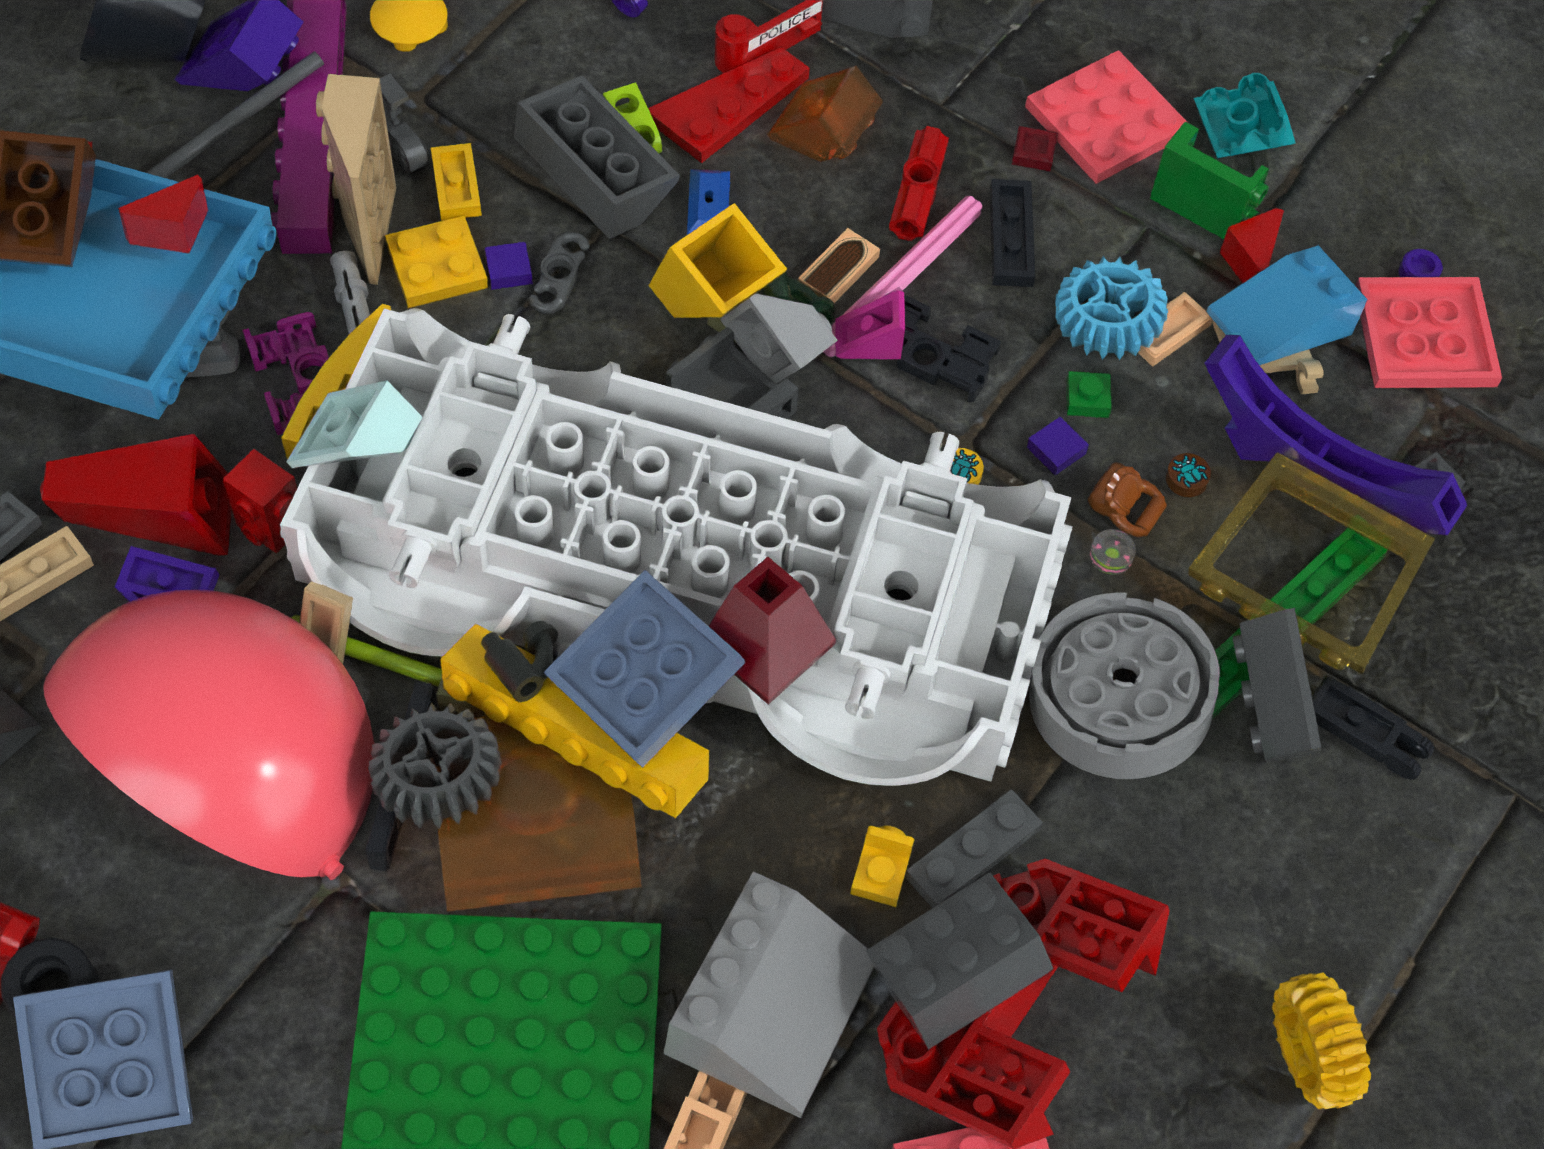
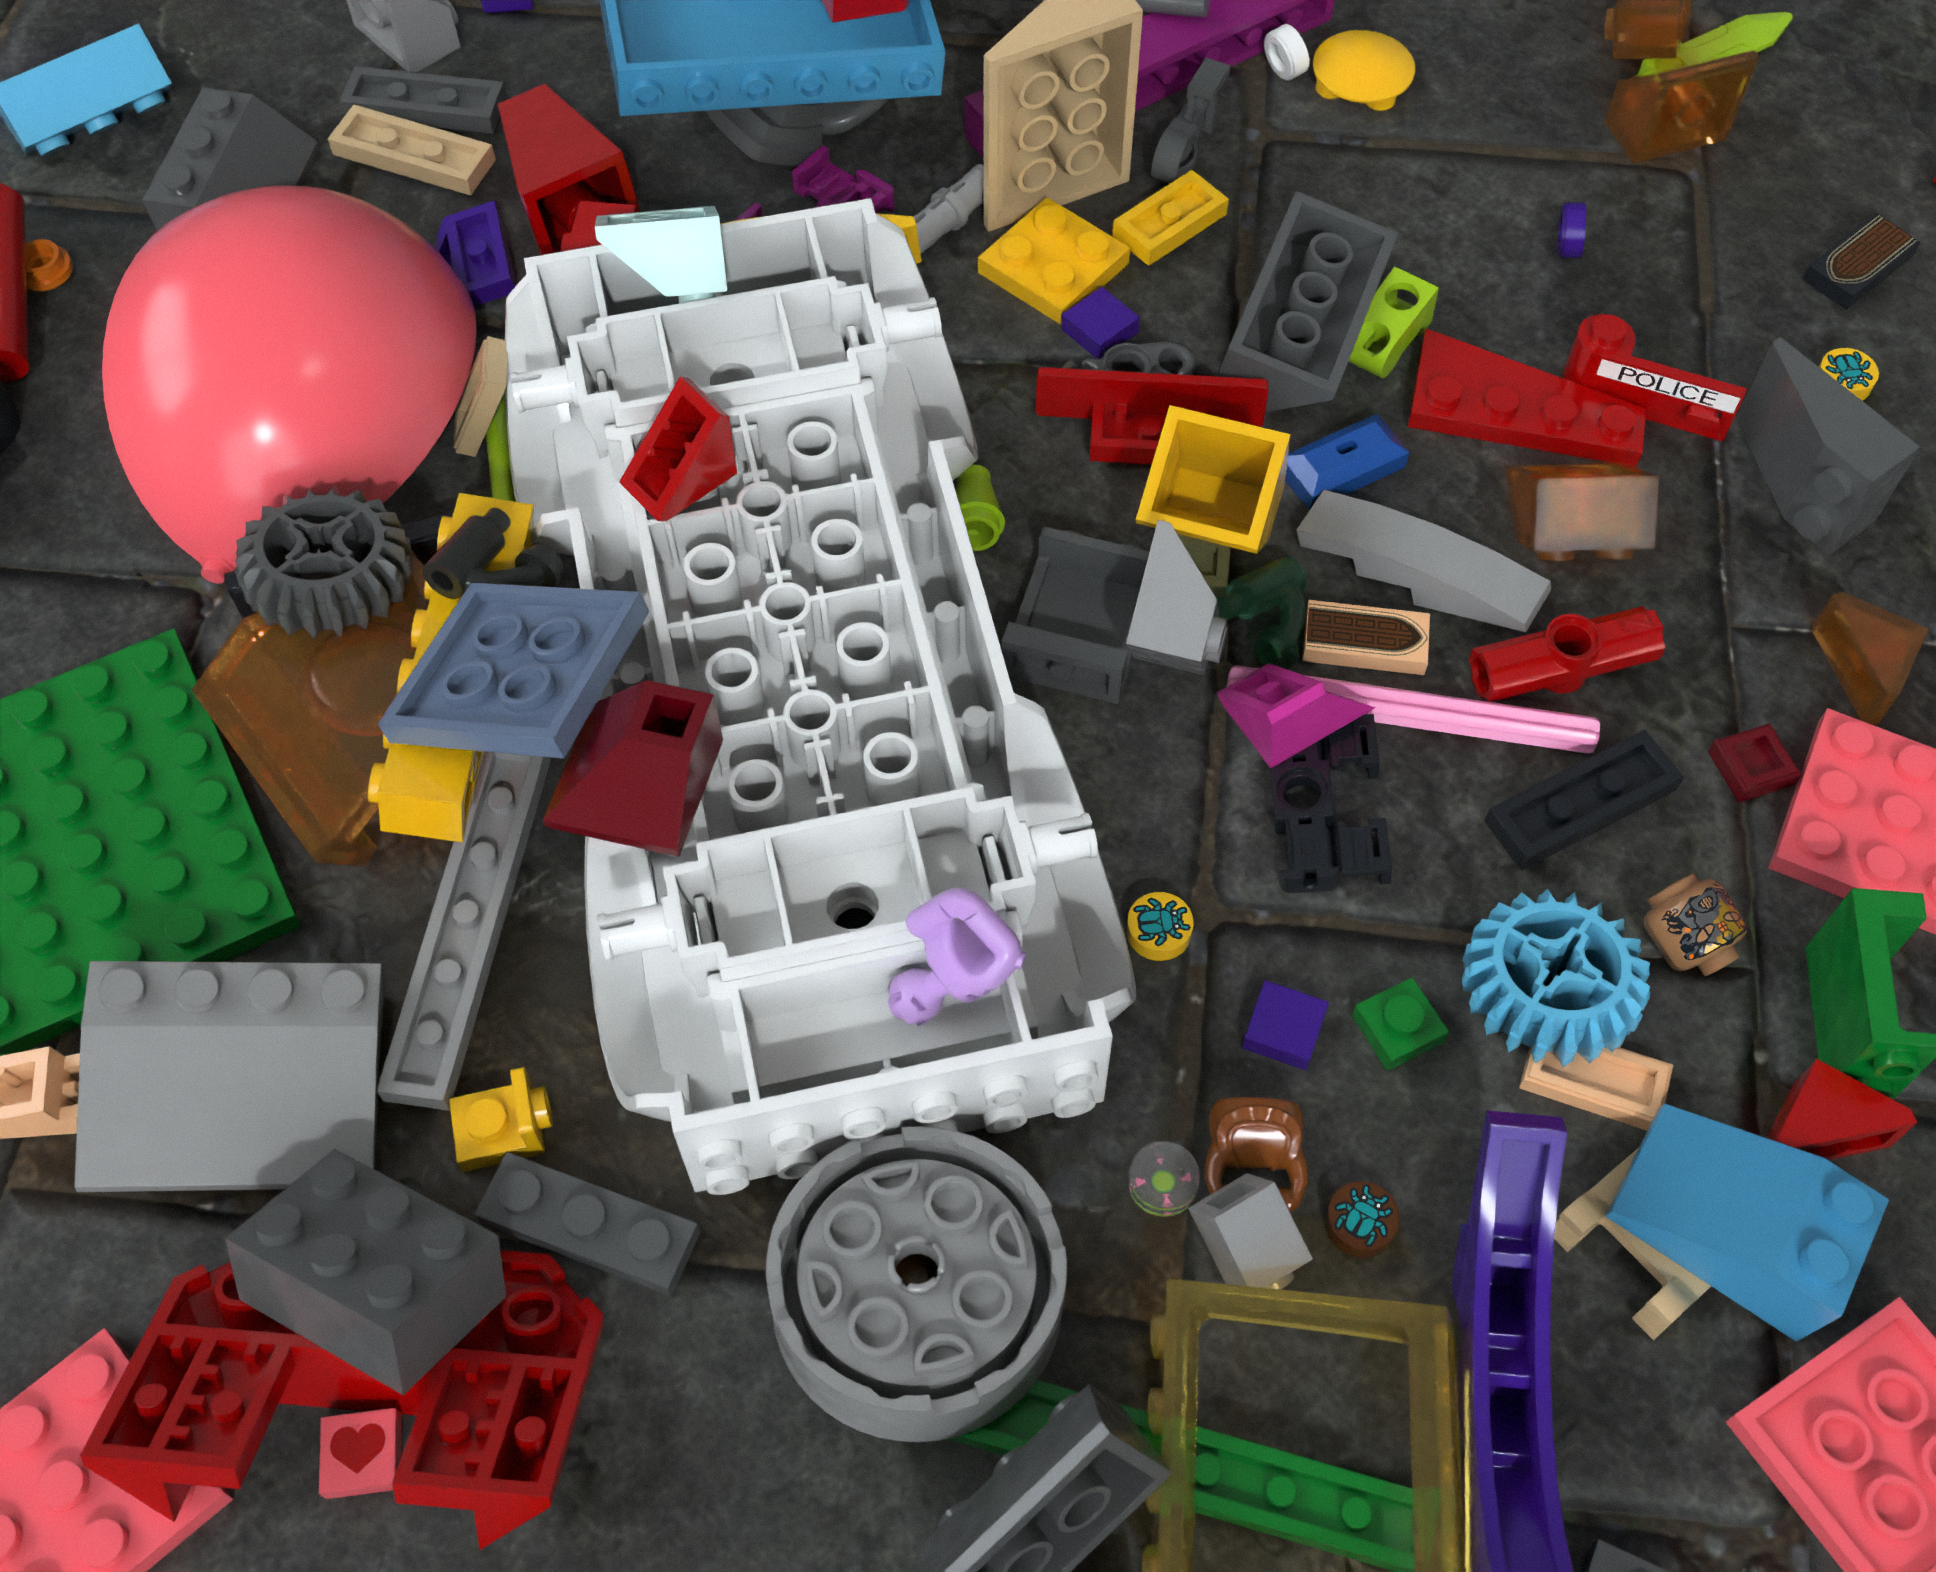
camera: 65 degrees right, 0 degrees up
(367, 45) = (1286, 52): none -> white tile
(543, 502) = (682, 453): none -> red slope
(610, 280) = (1133, 406): none -> red bracket
(765, 848) = (463, 934): none -> light grey plate
(821, 204) = (1437, 564): none -> light grey slope
(992, 536) = (964, 954): none -> lavender piece
(1010, 57) = (1868, 652): none -> clear orange slope
(1051, 1029) = (359, 1452): none -> coral tile
(1117, 231) = (1695, 925): none -> head
(1176, 523) = (1251, 1233): none -> light grey brick

